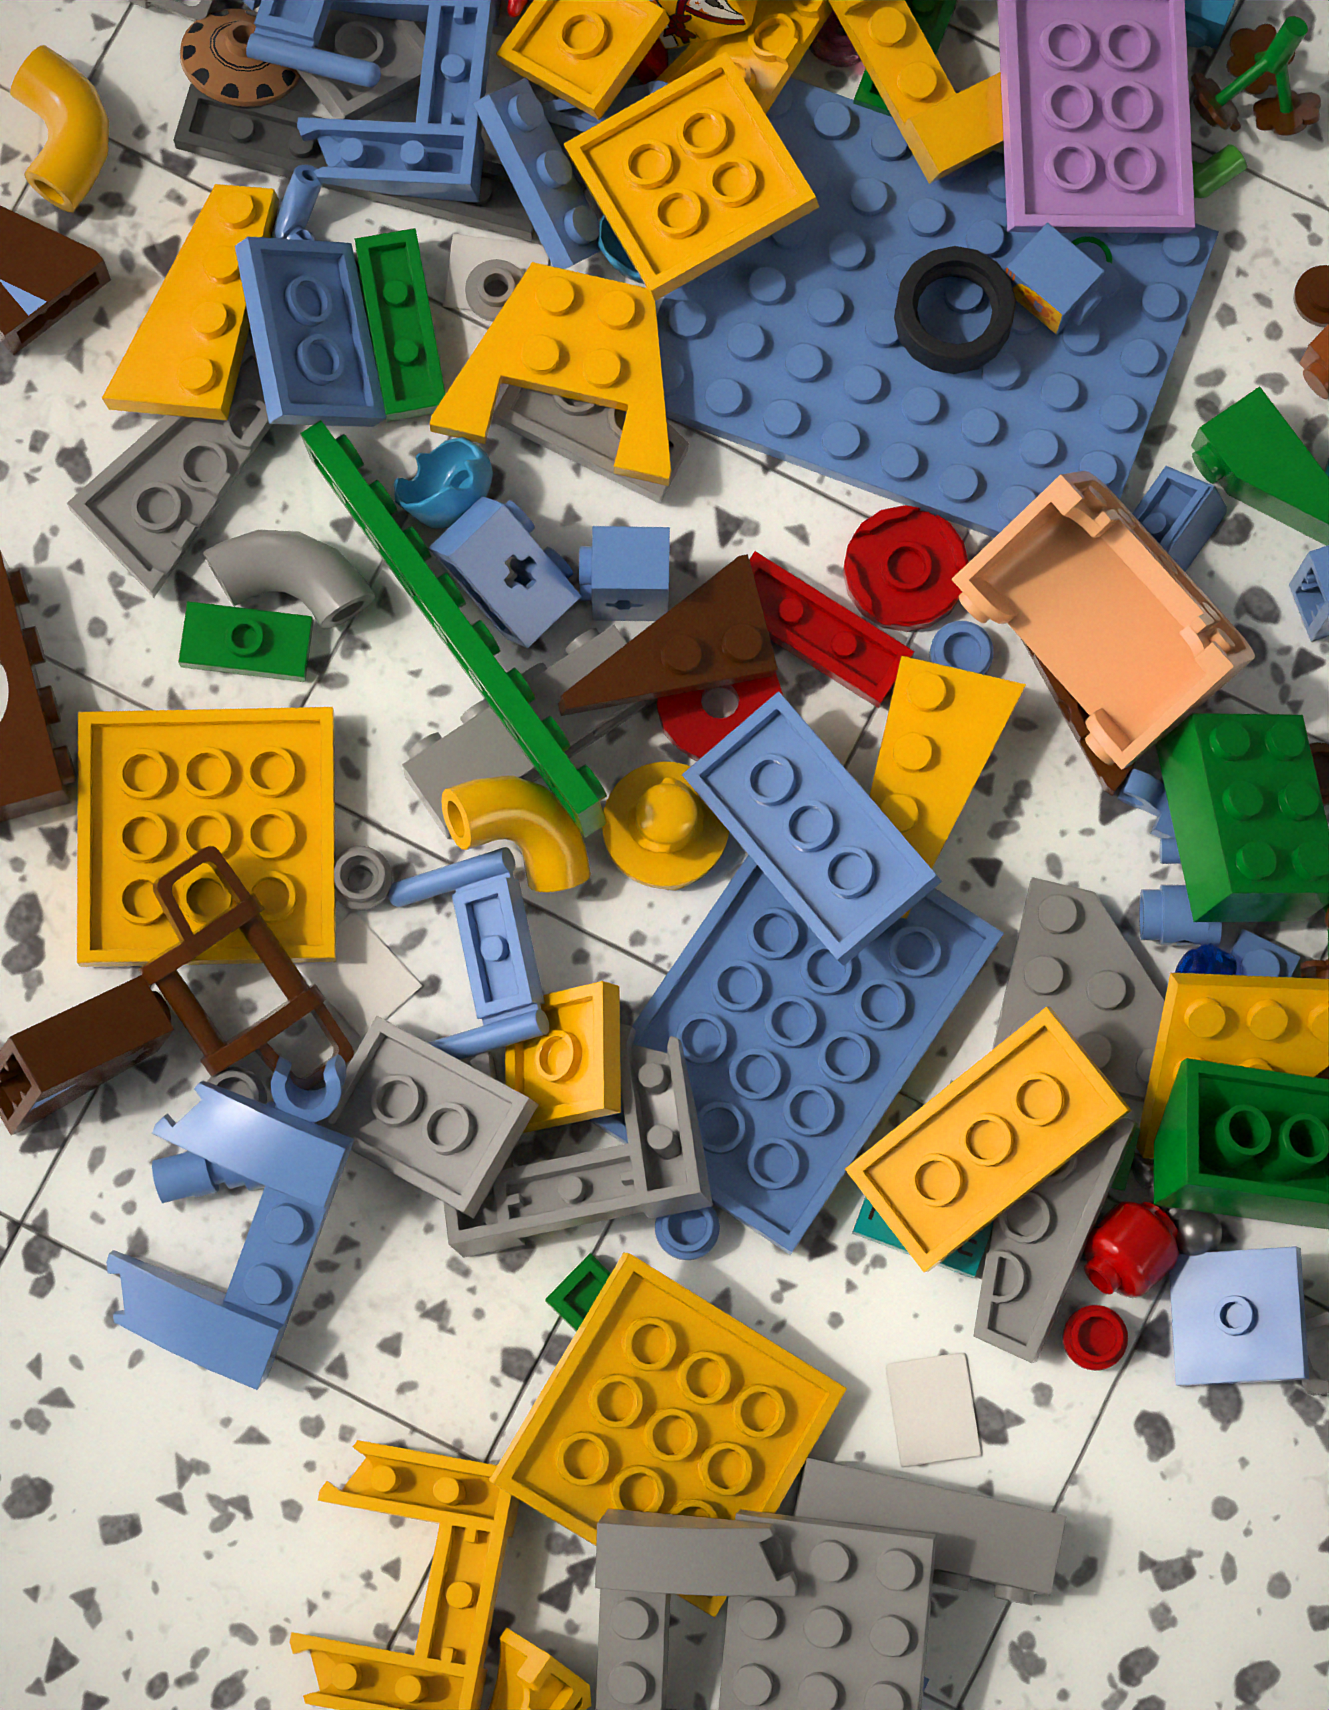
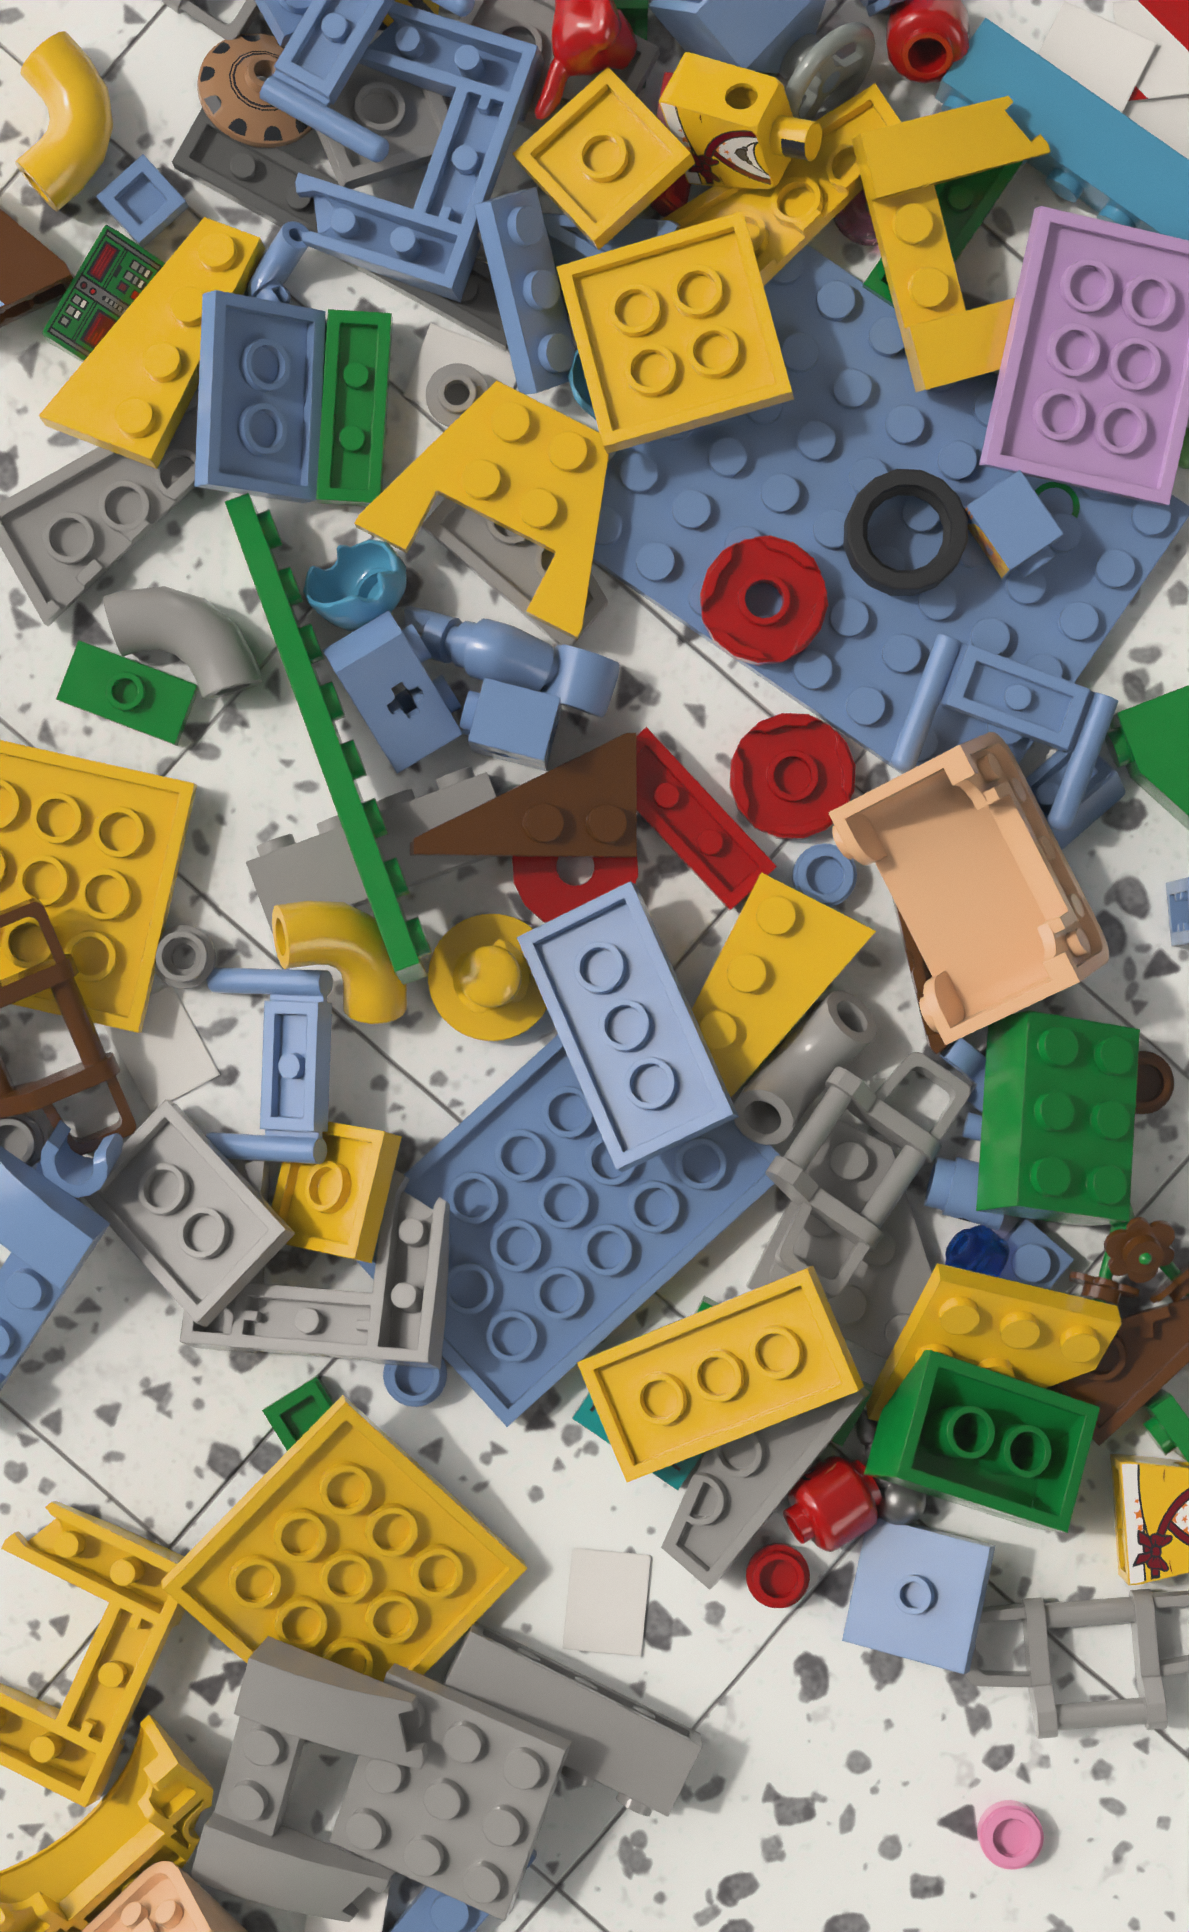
camera: 20 degrees right, 10 degrees up
(132, 276) = (100, 293): none -> slope
(153, 183) = (142, 201): none -> medium blue plate
(592, 504) = (518, 658): none -> medium blue piece
(831, 441) = (769, 562): none -> red tile
(990, 833) = (801, 1065): none -> light grey cylinder
(1046, 847) = (917, 1147): none -> light grey bar
(1100, 439) = (1014, 700): none -> medium blue plate

